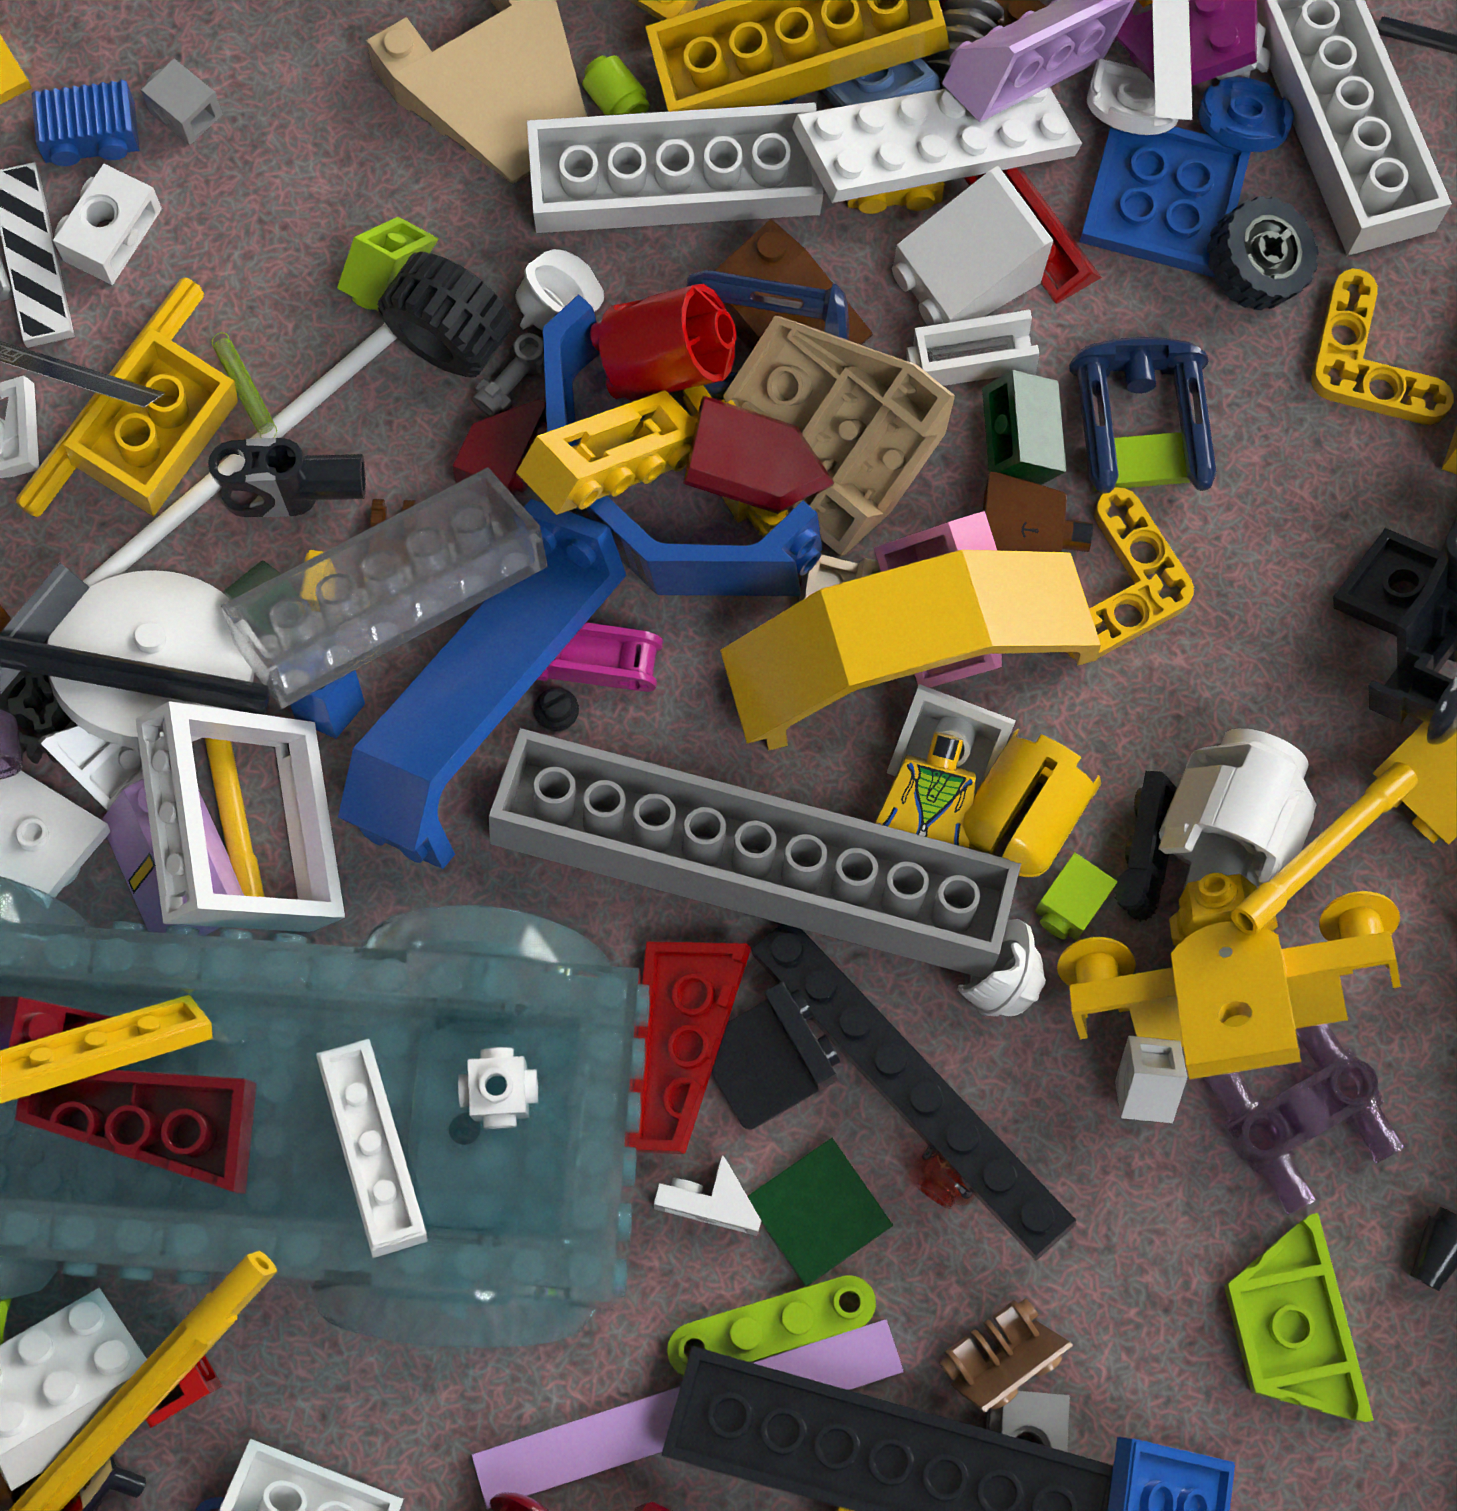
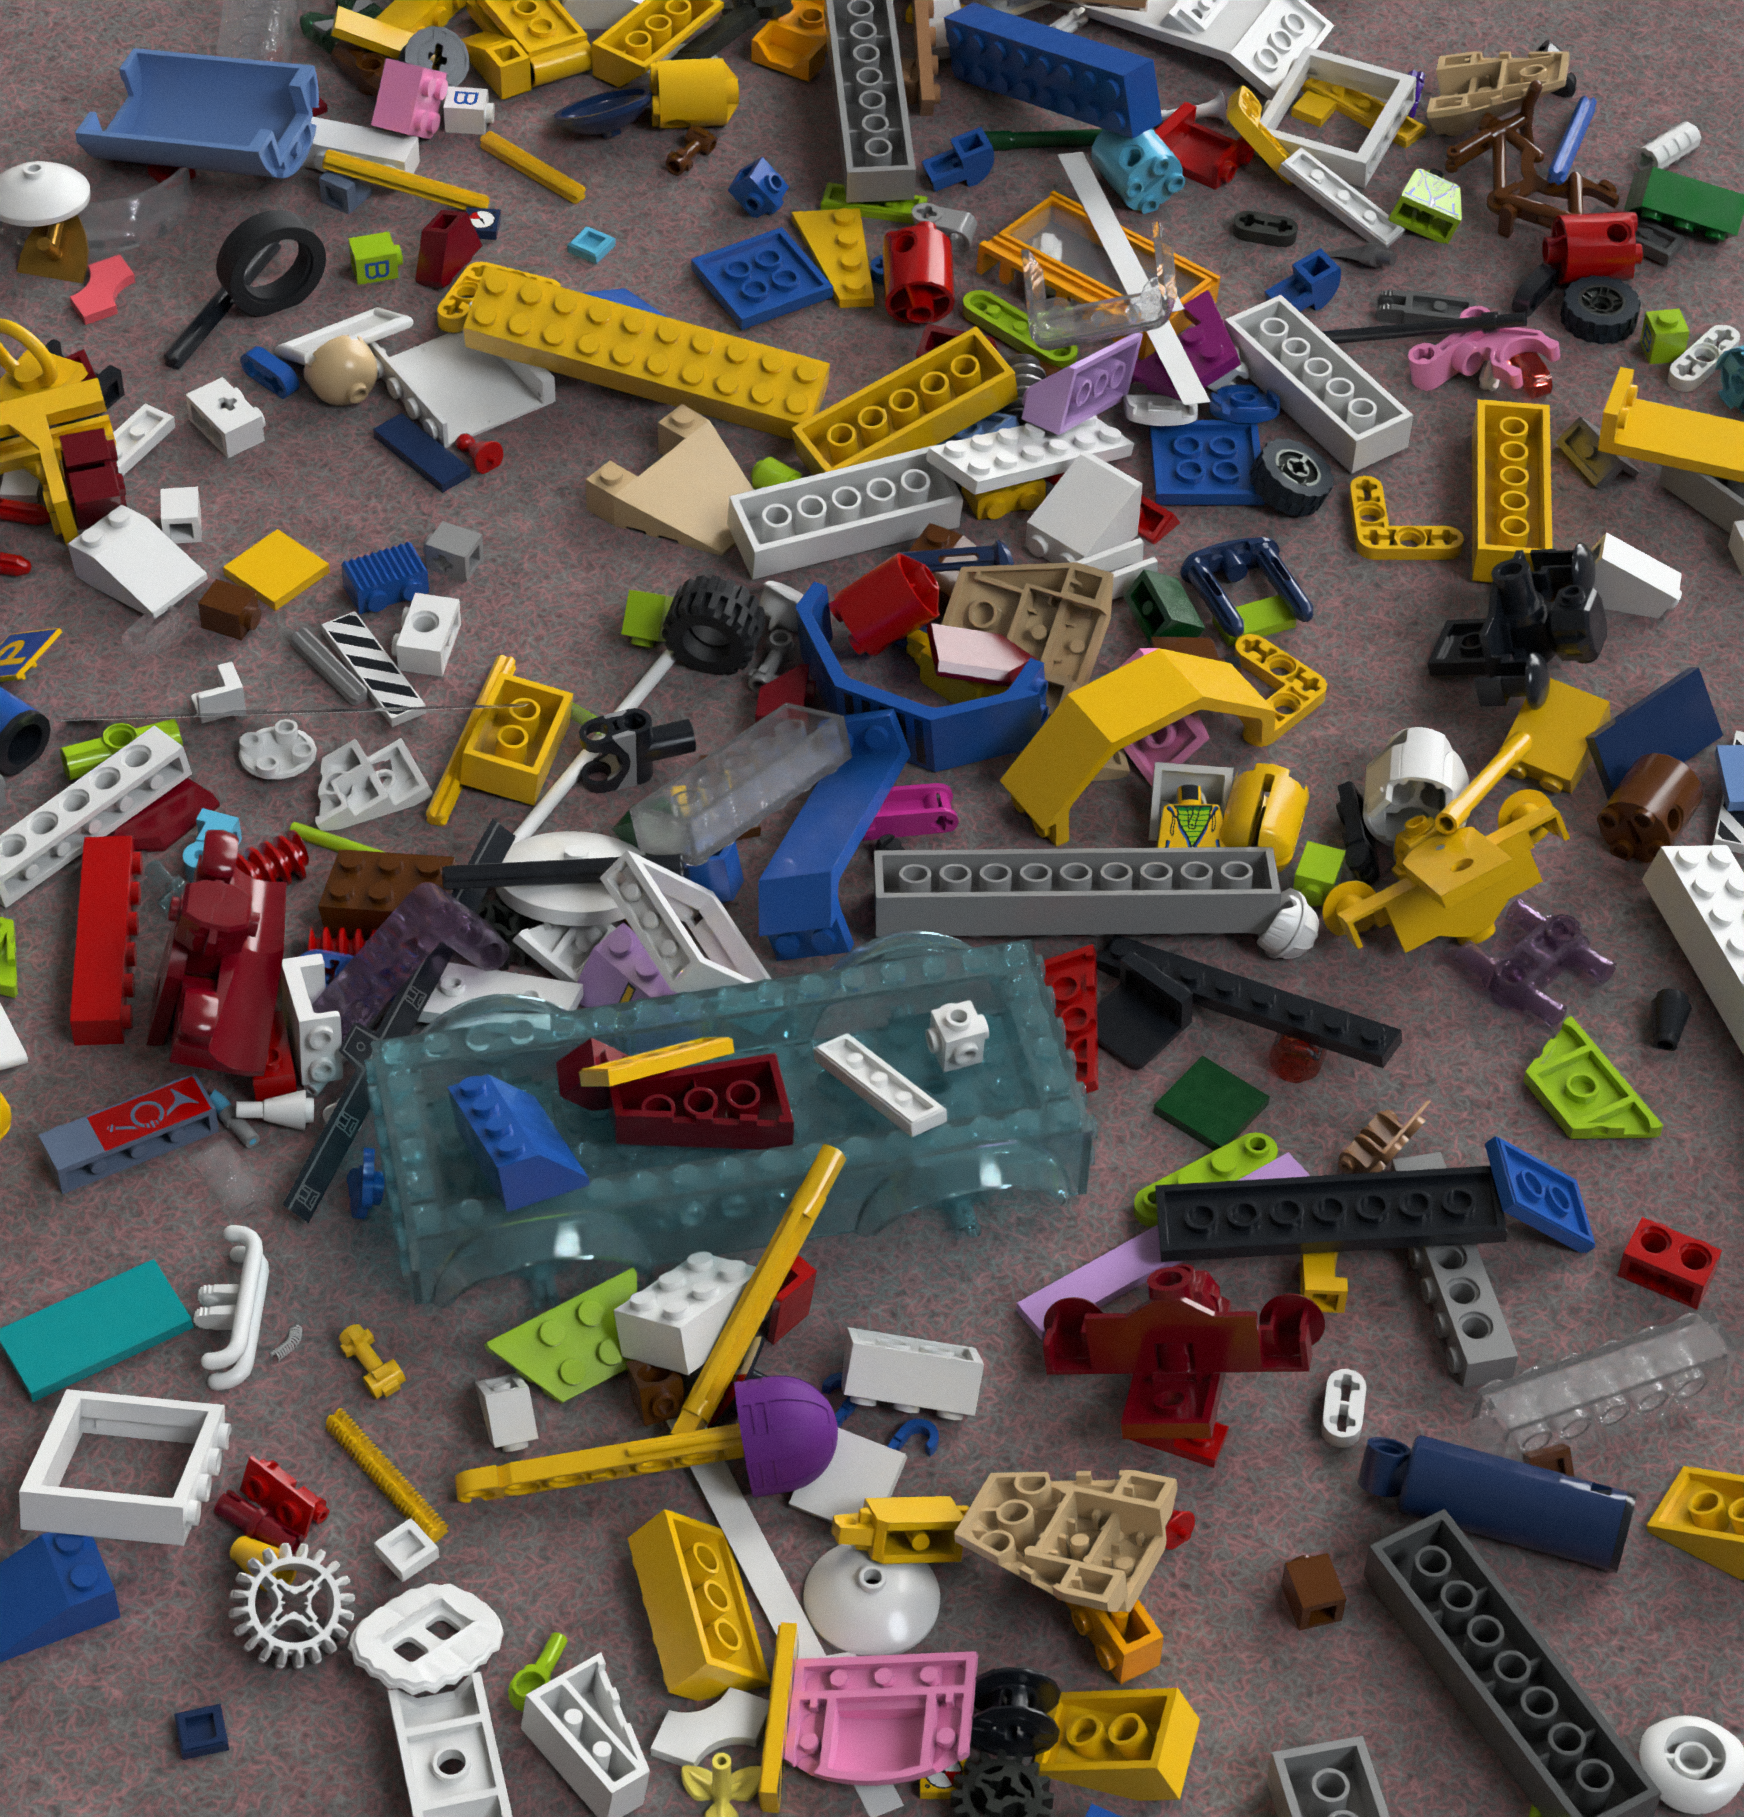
camera: 15 degrees left, 25 degrees down
(611, 453) = (869, 665): yellow brick -> none
(725, 1208) = (1139, 1112): white slope -> none
(1150, 1079) = (1418, 963): white brick -> none

